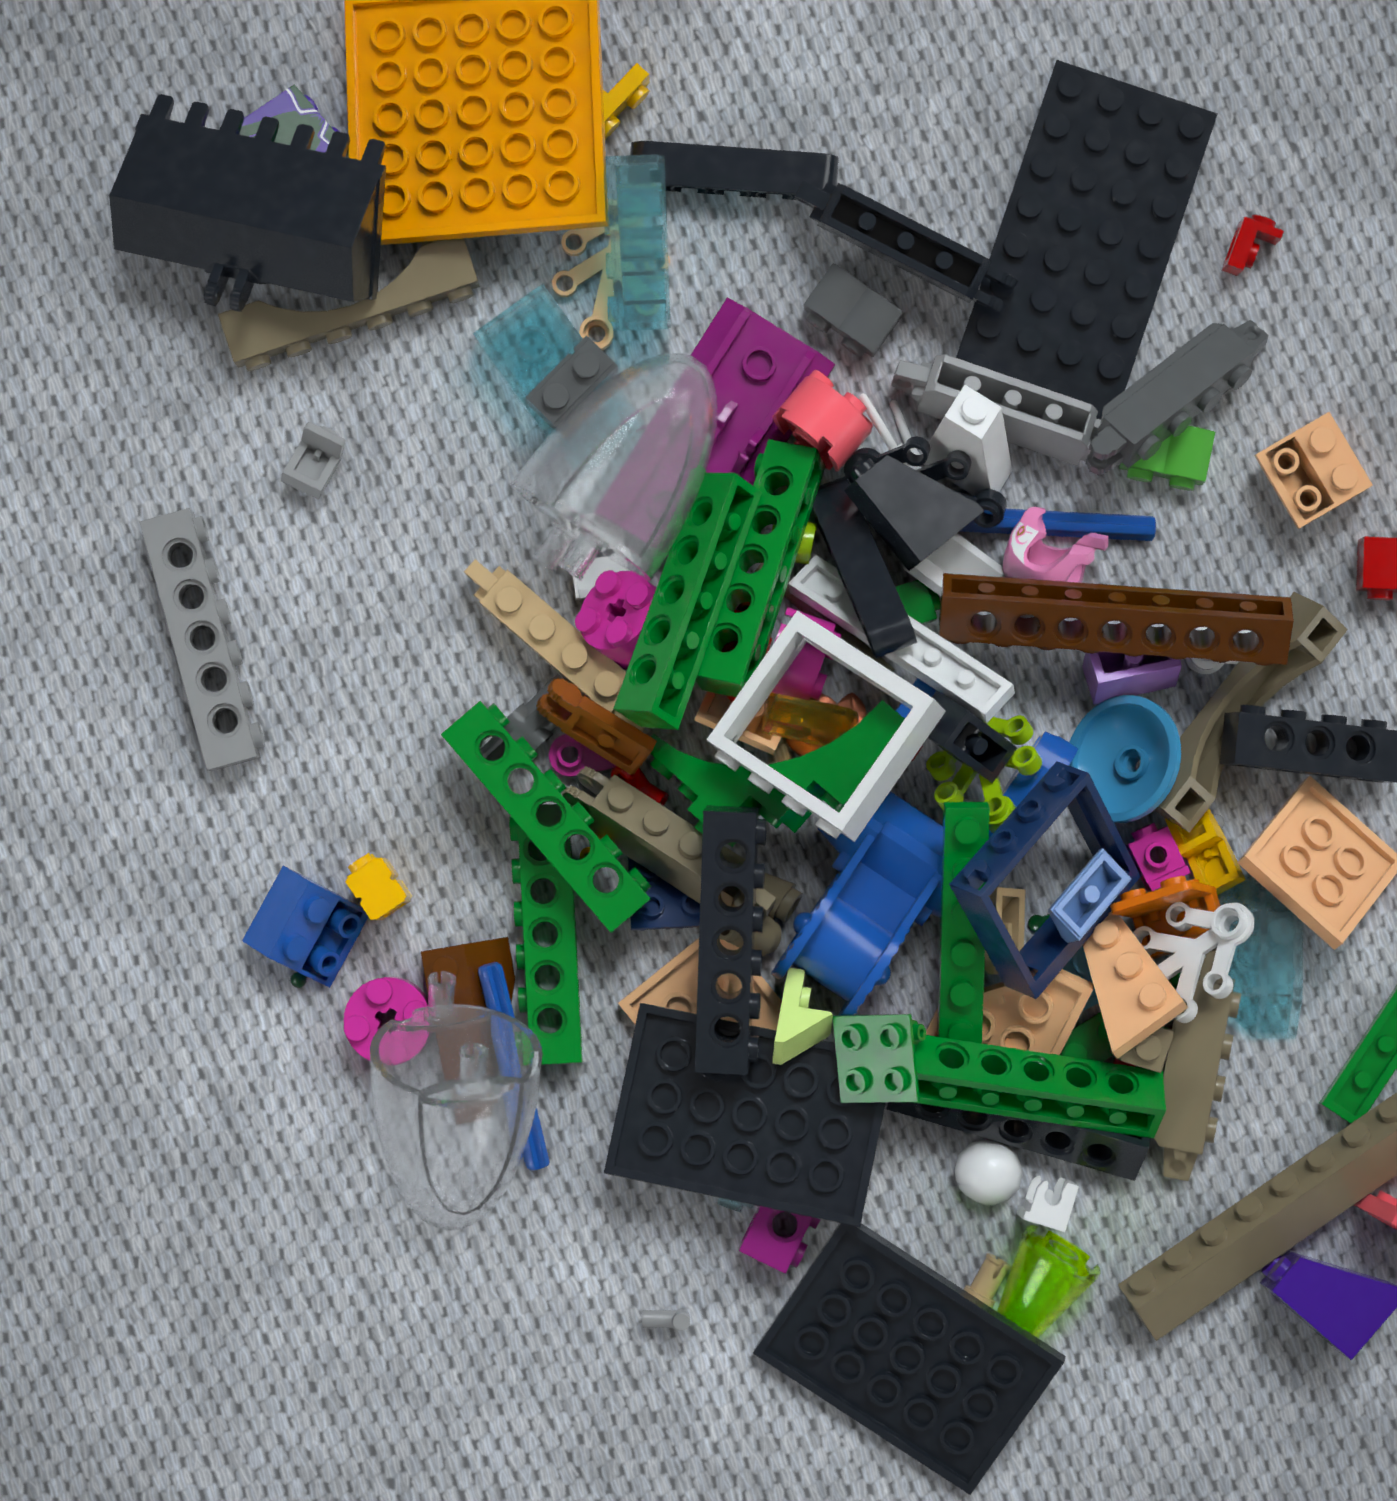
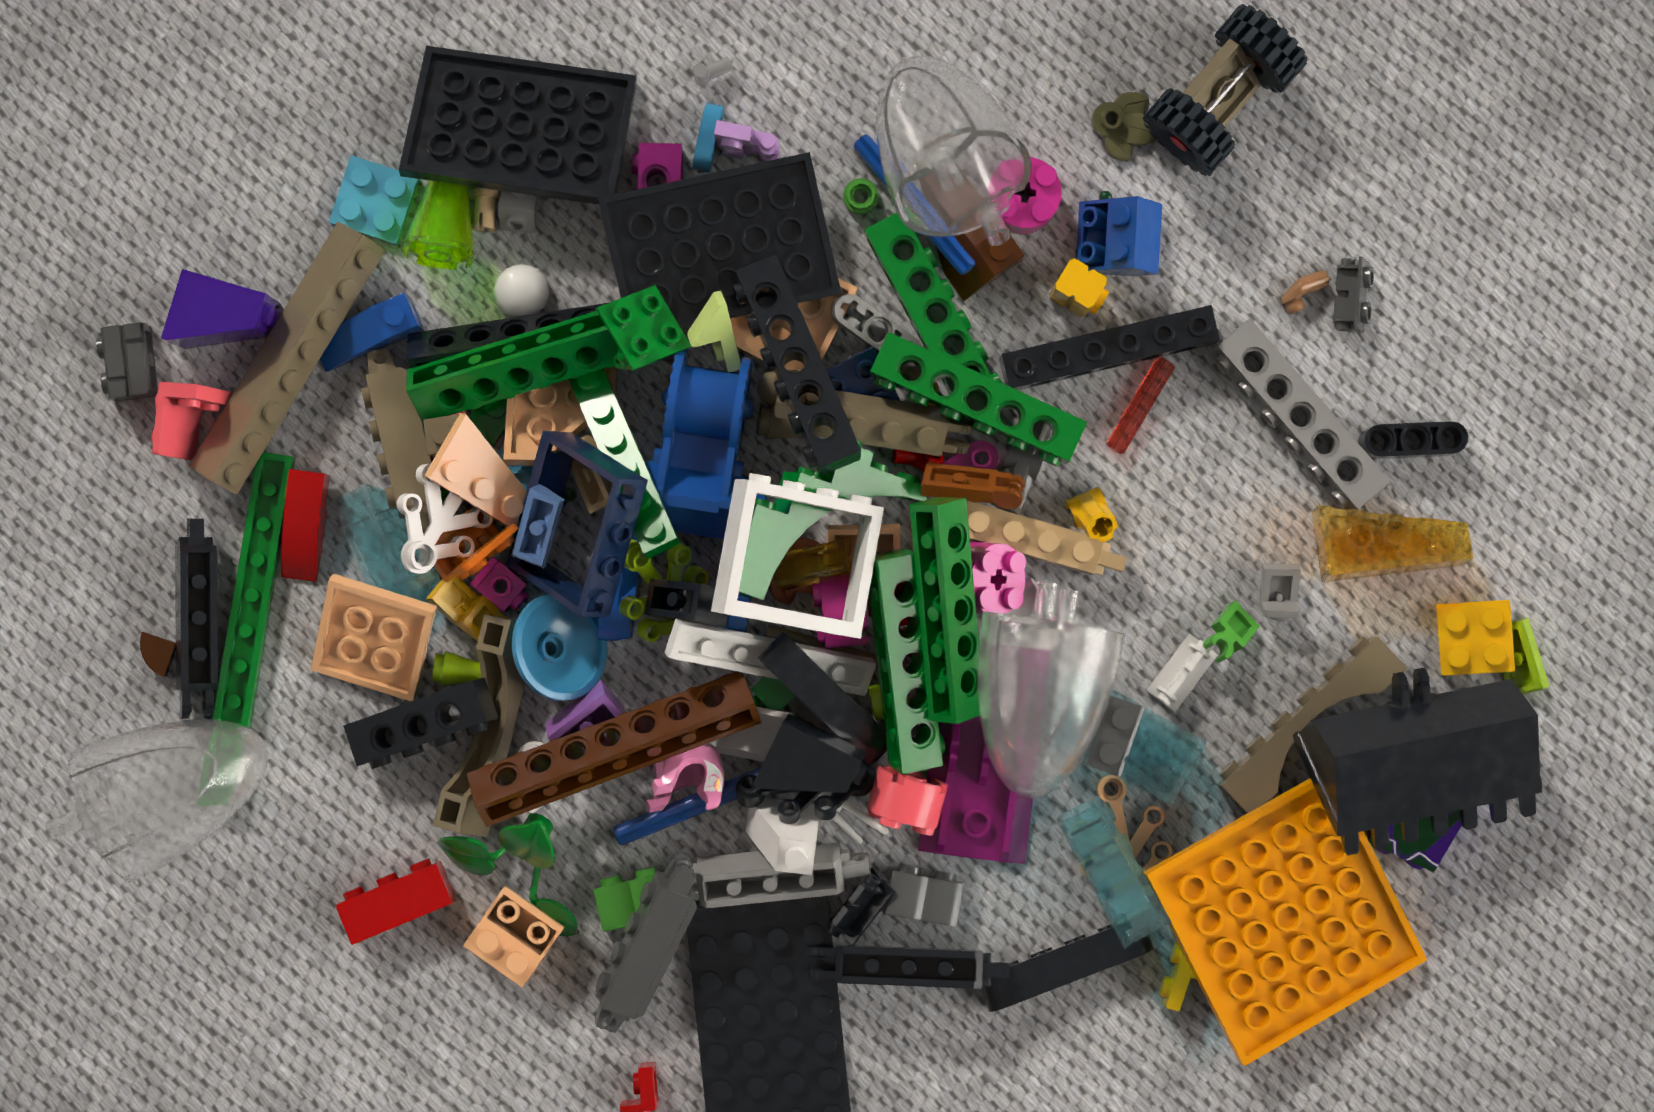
camera: 160 degrees right, 0 degrees up
(68, 1059) = (1251, 55): none -> black plate
(69, 757) = (1354, 280): none -> dark grey hinge
(72, 550) = (1429, 436): none -> black beam
(88, 272) = (1529, 669): none -> lime slope
(127, 313) = (1475, 637): none -> yellow plate
(129, 780) = (1303, 286): none -> medium nougat arm
(176, 457) = (1374, 544): none -> clear yellow wedge
(235, 1044) = (1128, 124): none -> olive plate
(369, 732) = (1140, 405): none -> clear red axle
(375, 808) = (1109, 348): none -> black brick
(385, 441) = (1232, 629): none -> bright green plate
(461, 422) = (1182, 672): none -> white hinge
(479, 634) = (1092, 514): none -> yellow piece
(557, 1114) = (860, 185): none -> bright green plate
(624, 978) = (860, 308): none -> light grey beam
(675, 1225) = (742, 140): none -> lavender plate
(705, 1247) = (706, 142): none -> dark azure beam
(925, 330) = (861, 907): none -> black hinge
(954, 1259) = (517, 212): none -> light grey bracket
(1049, 1207) = (464, 281): white hinge -> none
(1106, 1348) = (374, 200): none -> medium azure plate
(1172, 1202) = (372, 330): none -> blue slope
(1248, 789) = (454, 669): none -> lime cone
(1254, 560) = (525, 841): none -> green plant
(1342, 1023) = (304, 524): none -> red slope

